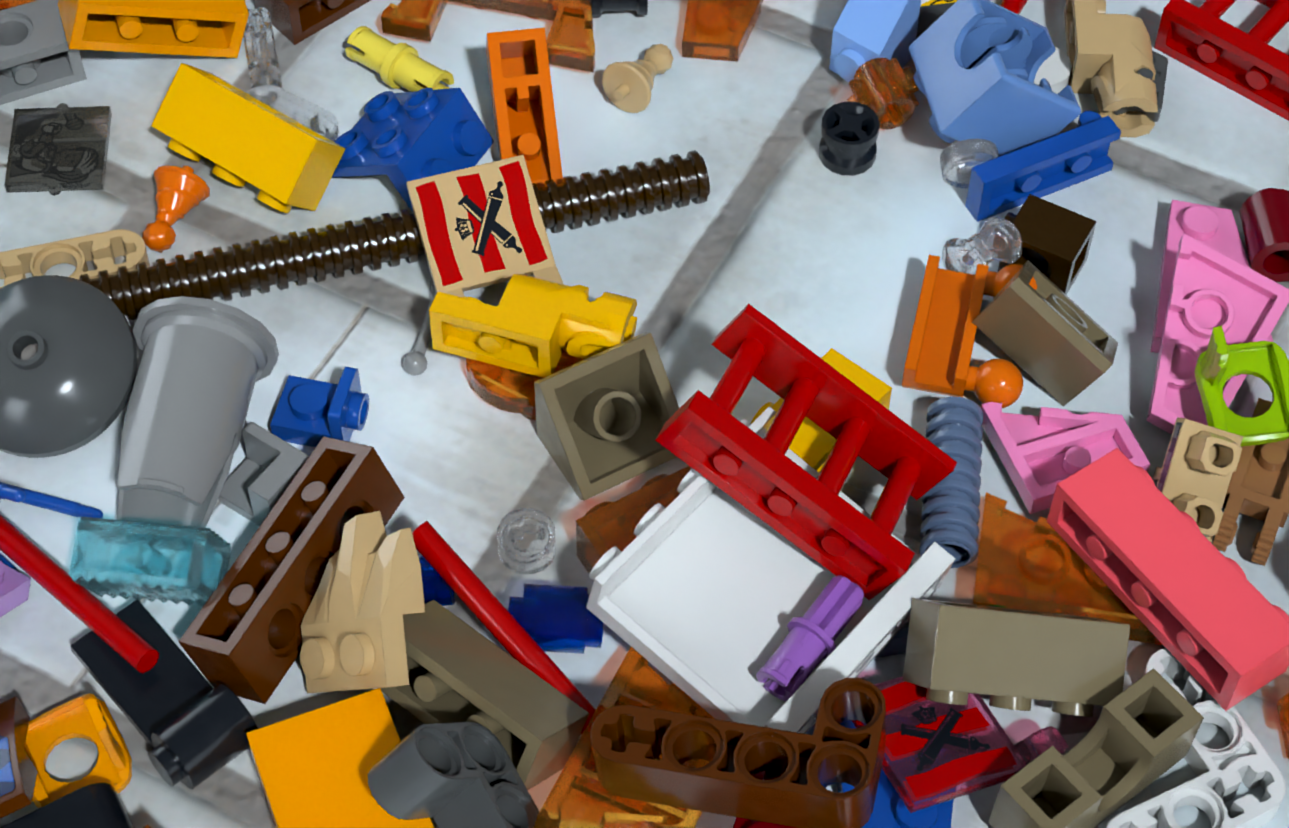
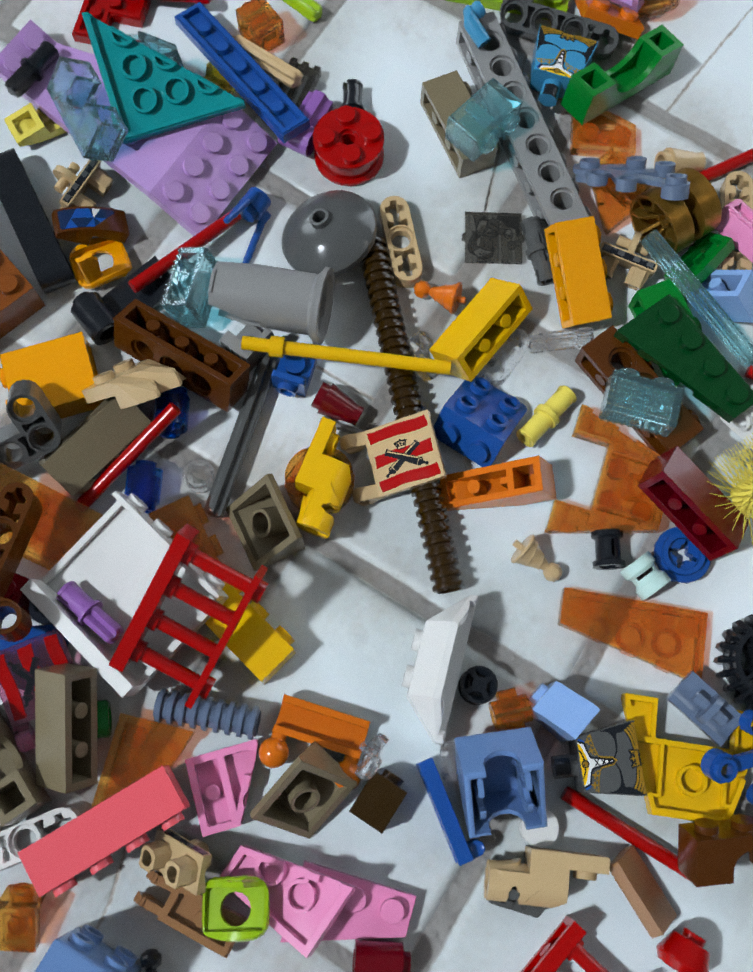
camera: 90 degrees right, 20 degrees up
(95, 78) = (537, 249): none -> dark grey pin
(288, 396) = (278, 347): none -> yellow bar
(315, 219) = (421, 343): none -> clear piece
(383, 341) = (336, 404): none -> dark red cone
(477, 485) = (240, 438): none -> dark grey axle
(827, 170) = (438, 666): none -> white wedge

